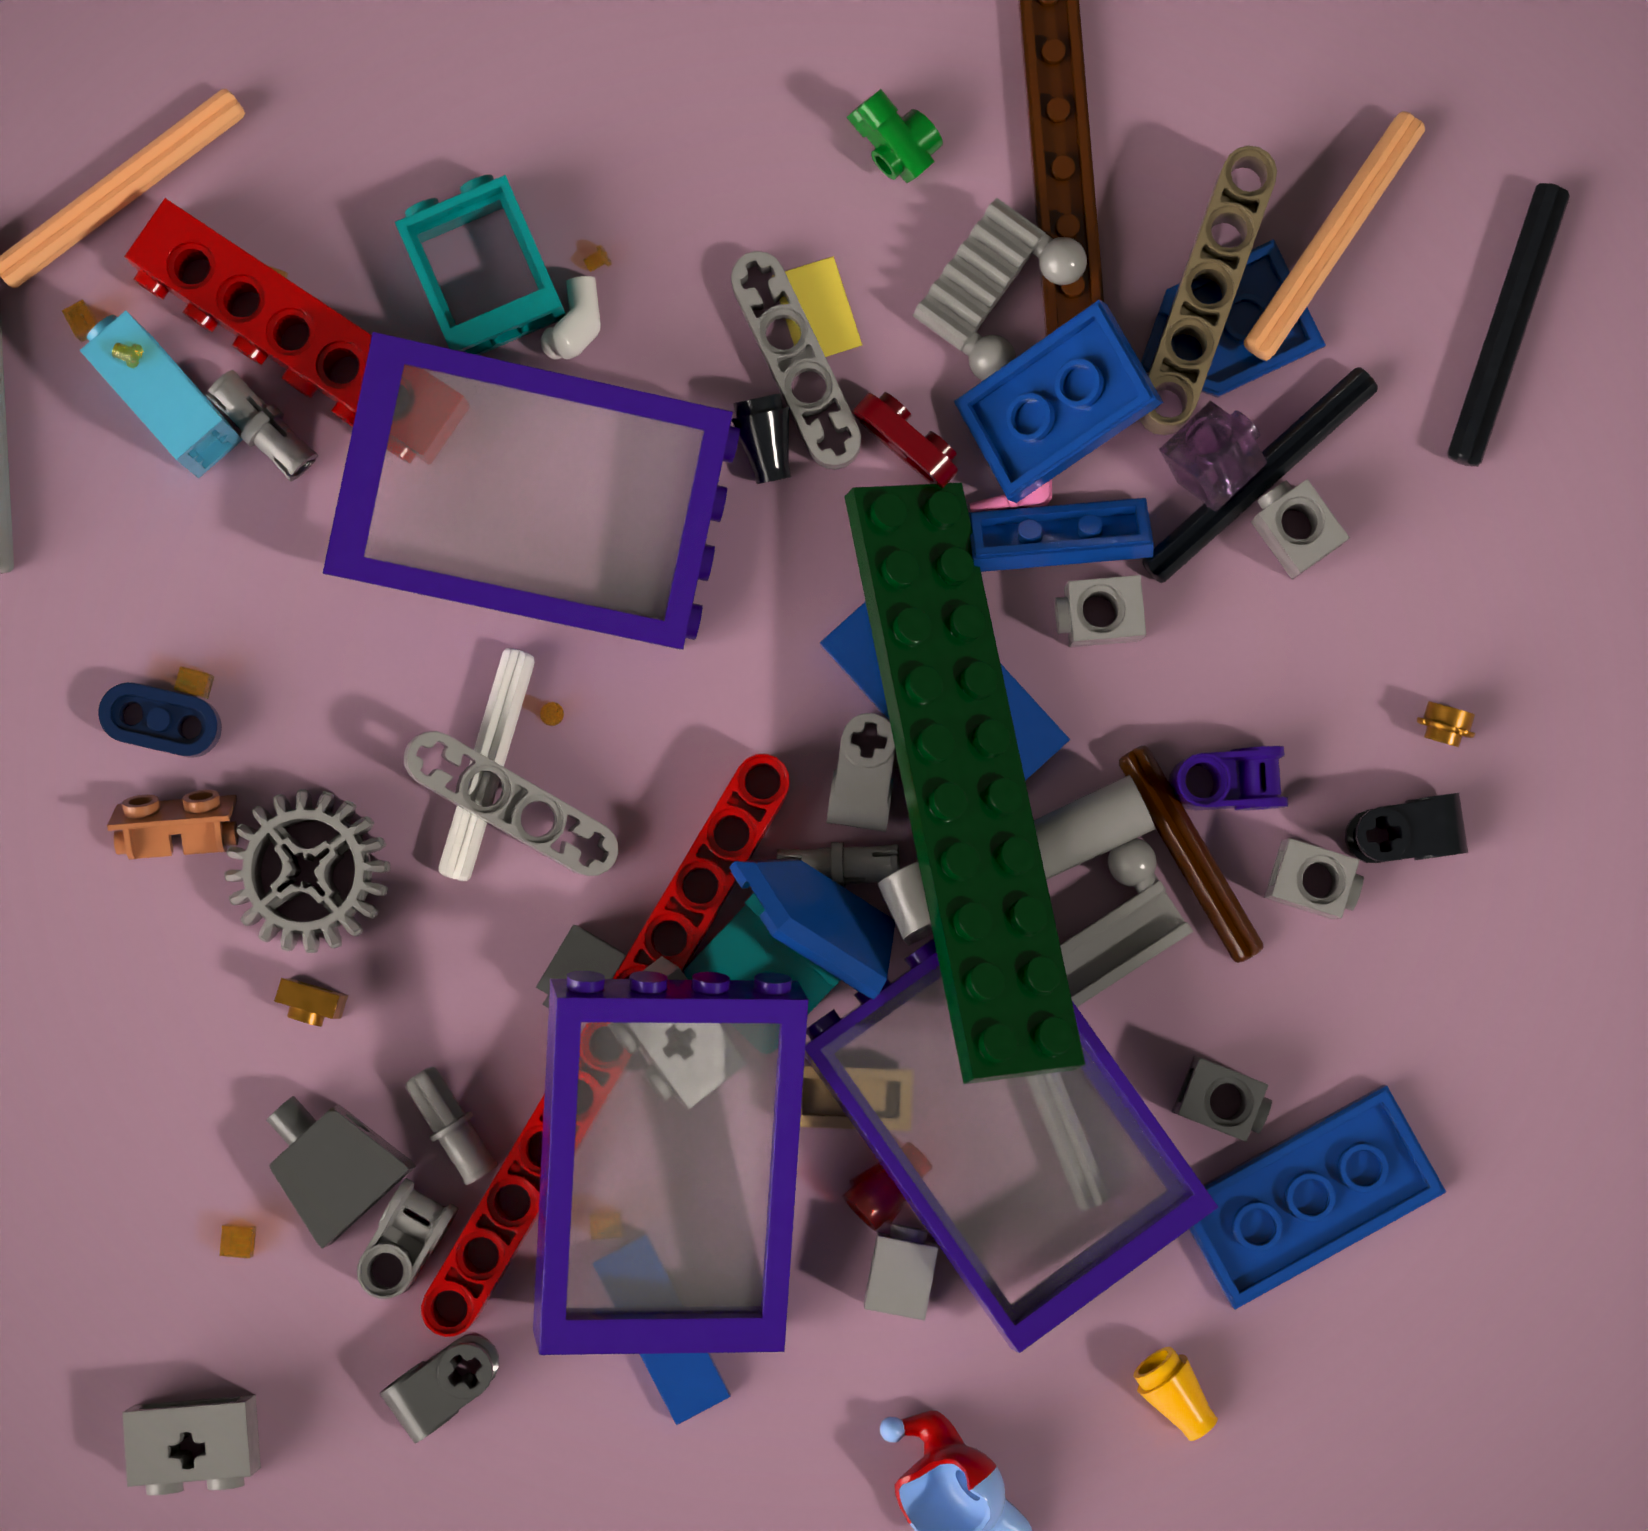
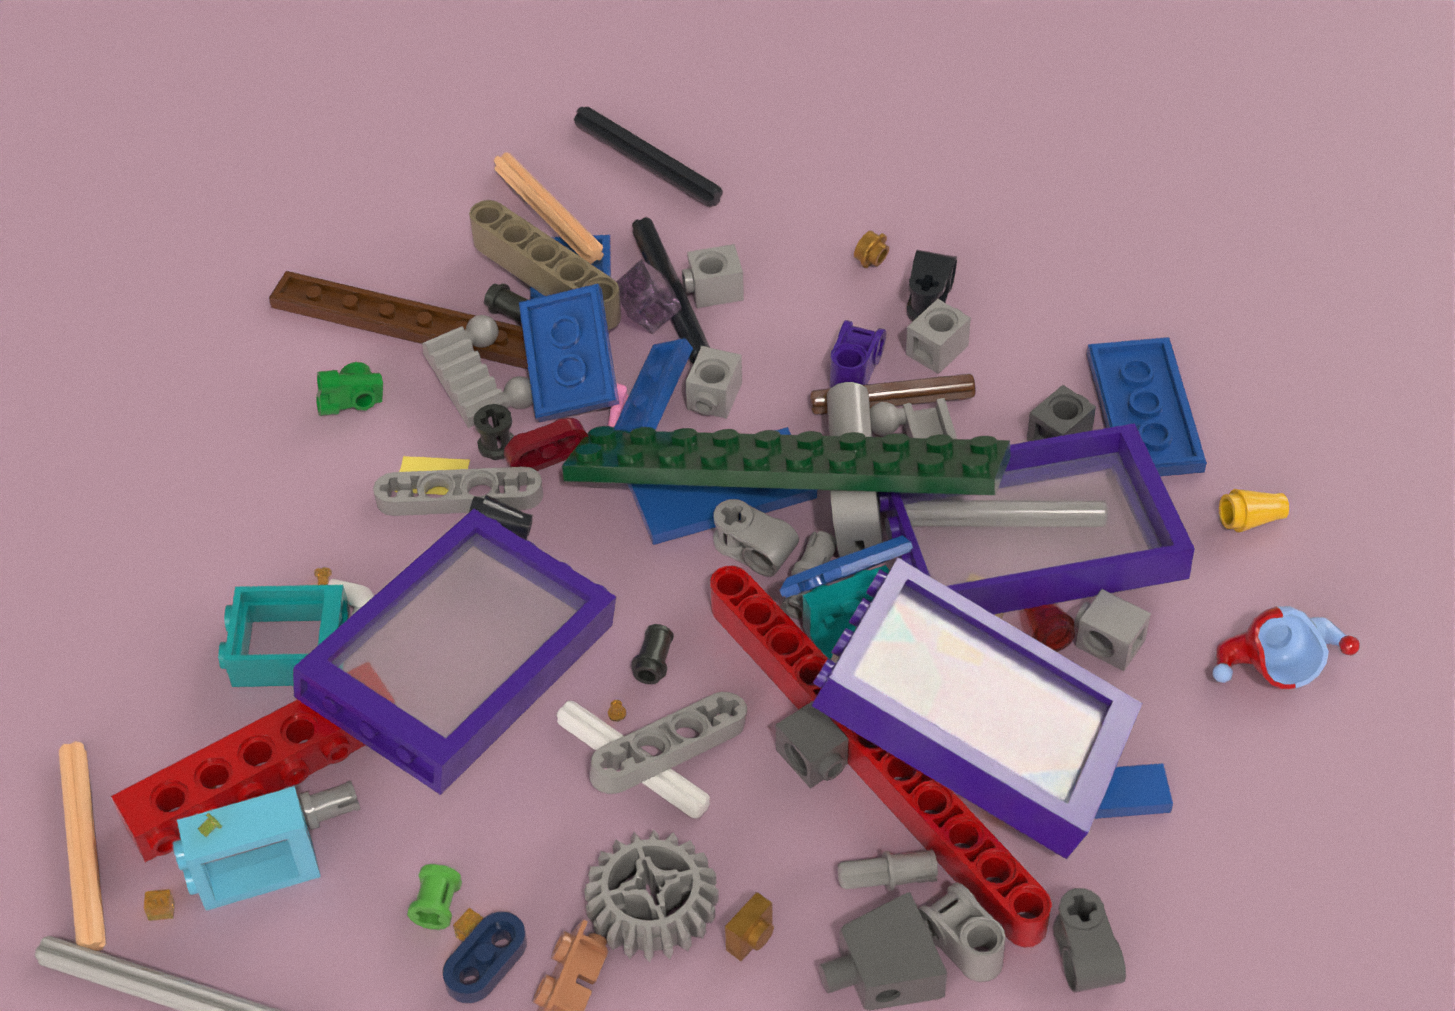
camera: 65 degrees left, 35 degrees down
(209, 627) = (434, 897): none -> bright green bush
(641, 724) = (650, 663): none -> pearl dark grey pin
(900, 344) = (501, 424): none -> pearl dark grey bush
(1137, 271) = (502, 300): none -> pearl dark grey pin

